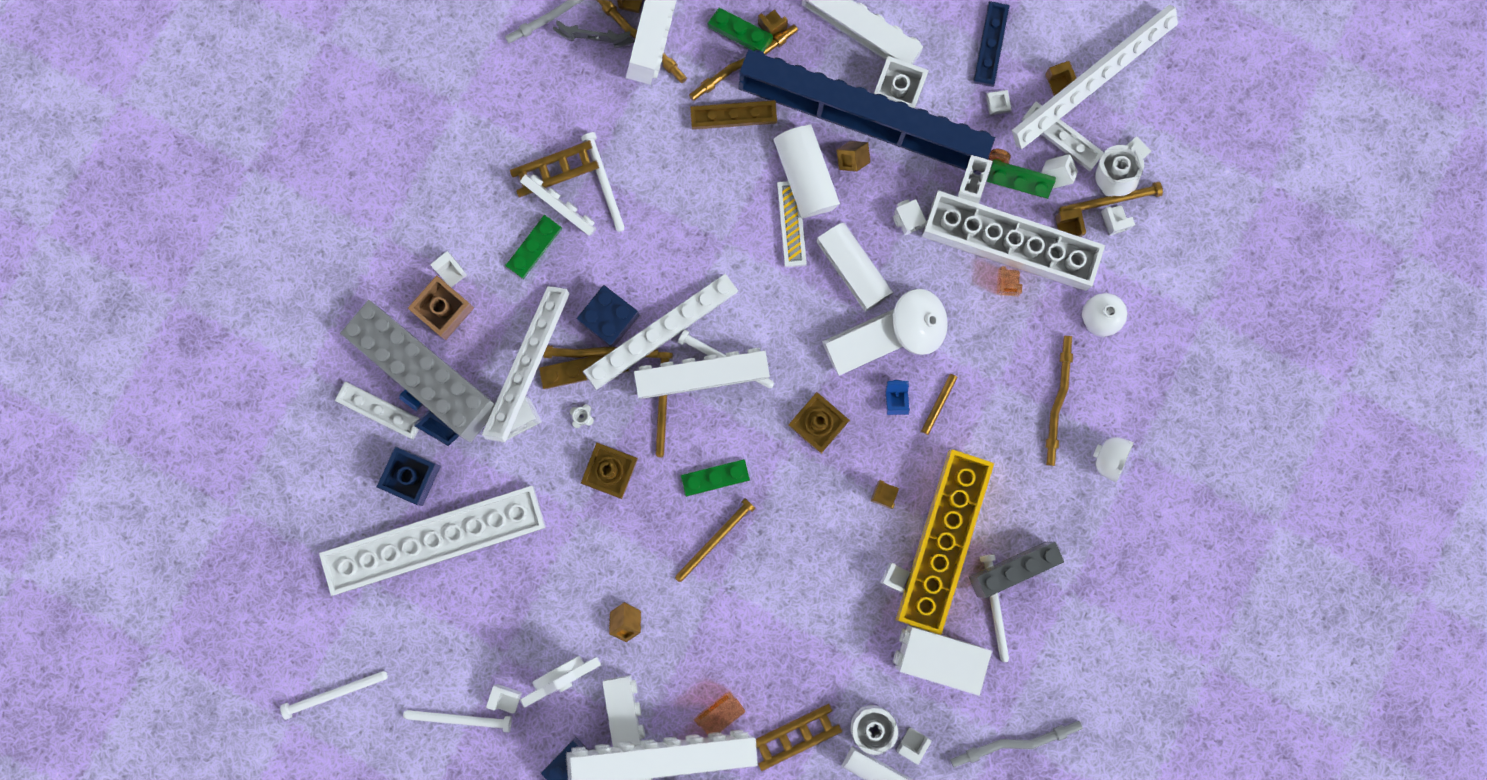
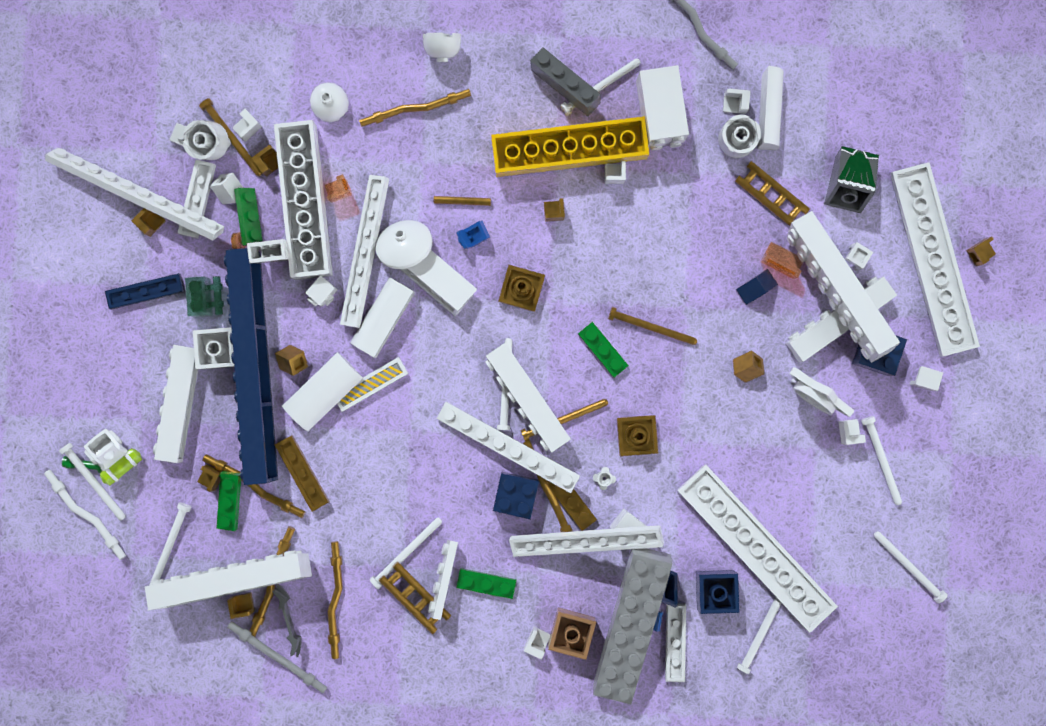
camera: 115 degrees left, 5 degrees up
(340, 499) = (759, 637): none -> white bar
(628, 108) = (333, 637): none -> pearl gold bar
(704, 673) = (757, 287): none -> dark blue slope
(932, 279) = (364, 251): none -> white plate
(960, 94) = (200, 297): none -> clear green brick
(998, 102) = (191, 263): white tile -> none

